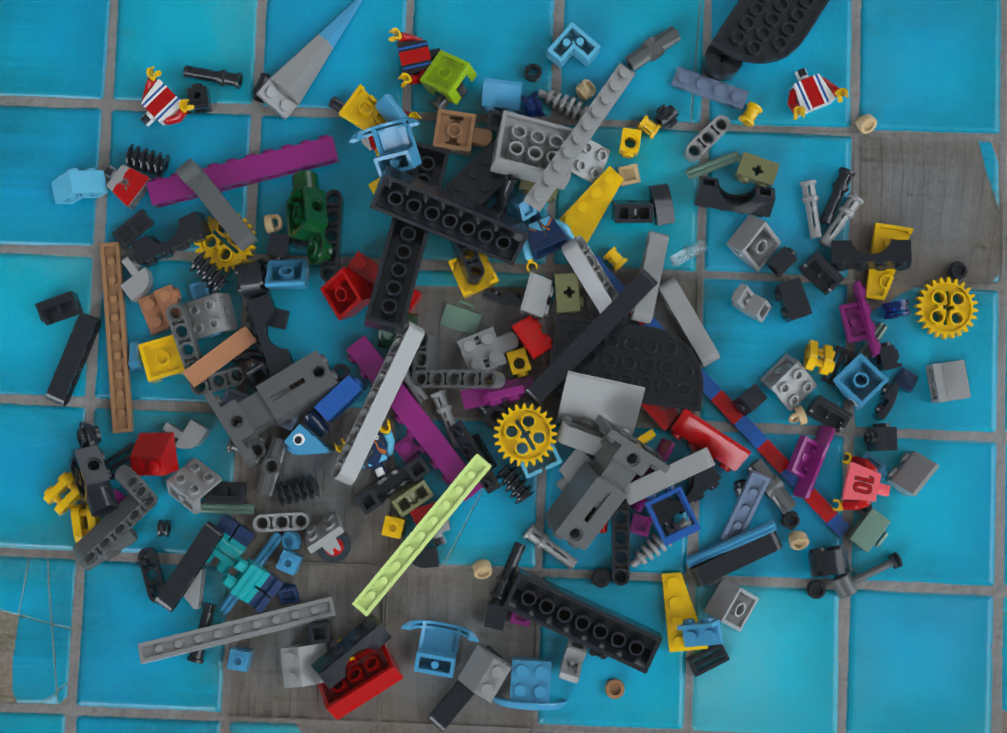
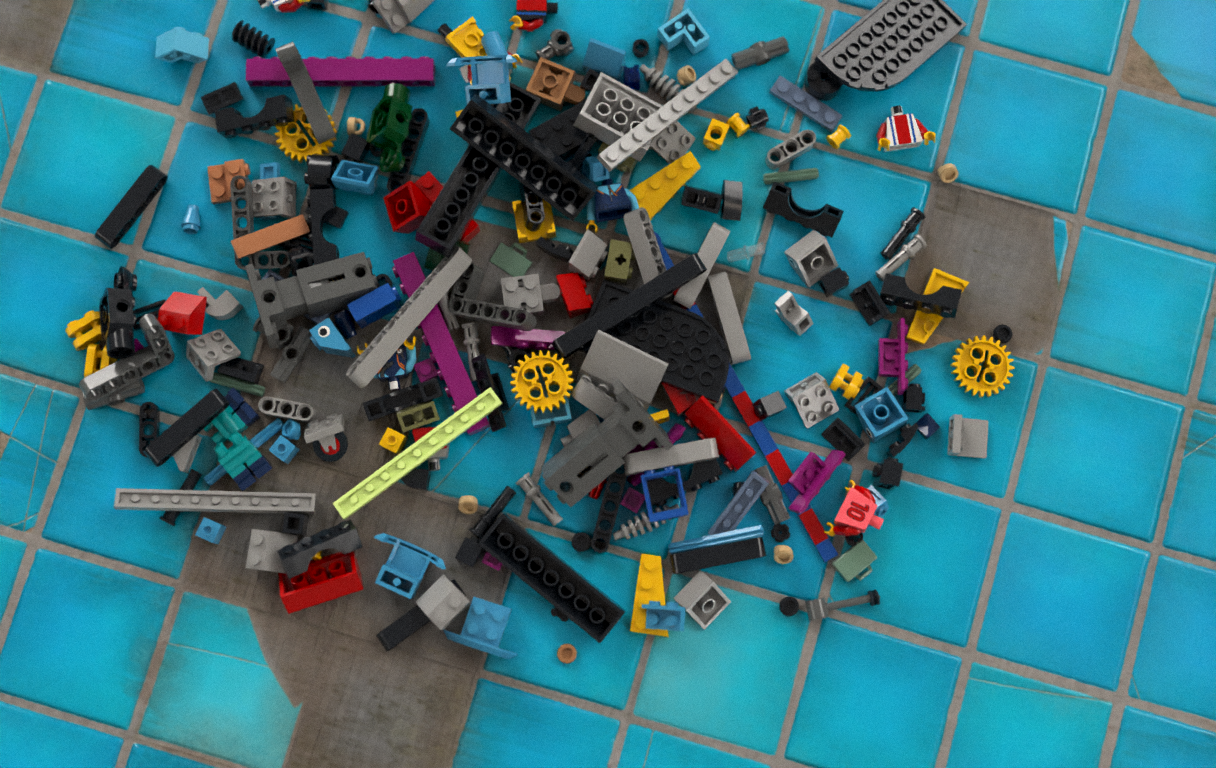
camera: 10 degrees right, 5 degrees down
(59, 308) = (131, 155): black hinge -> none
(116, 337) = (177, 197): medium nougat plate -> none
(127, 184) = (228, 57): torso -> none
(141, 281) = (214, 150): light grey brick -> none
(161, 358) = (214, 226): yellow panel -> none
(164, 528) = (172, 387): black bush -> none
(209, 273) = (282, 158): black piece -> none
(288, 594) = (274, 481): dark blue slope -> none
(298, 490) = (310, 383): black piece -> none
(446, 75) = (556, 28): lime panel -> none
(514, 483) = (520, 429): black piece -> none
(518, 354) = (555, 307): yellow brick -> none
(572, 661) = (532, 613): light grey brick -> none
(615, 258) = (674, 240): yellow bush -> none
(630, 174) = (708, 164): tan plate -> none
(693, 666) = (649, 651): black tile -> none
(766, 170) = (826, 182): olive brick -> none
(792, 300) = (835, 321): black brick -> none
(798, 416) = (815, 431): tan tile -> none
(815, 232) = (873, 263): light grey pin -> none
(828, 562) = (807, 580): black brick -> none
(894, 307) = (933, 355): clear blue wheel -> none
(911, 473) = (909, 515): light grey slope -> none

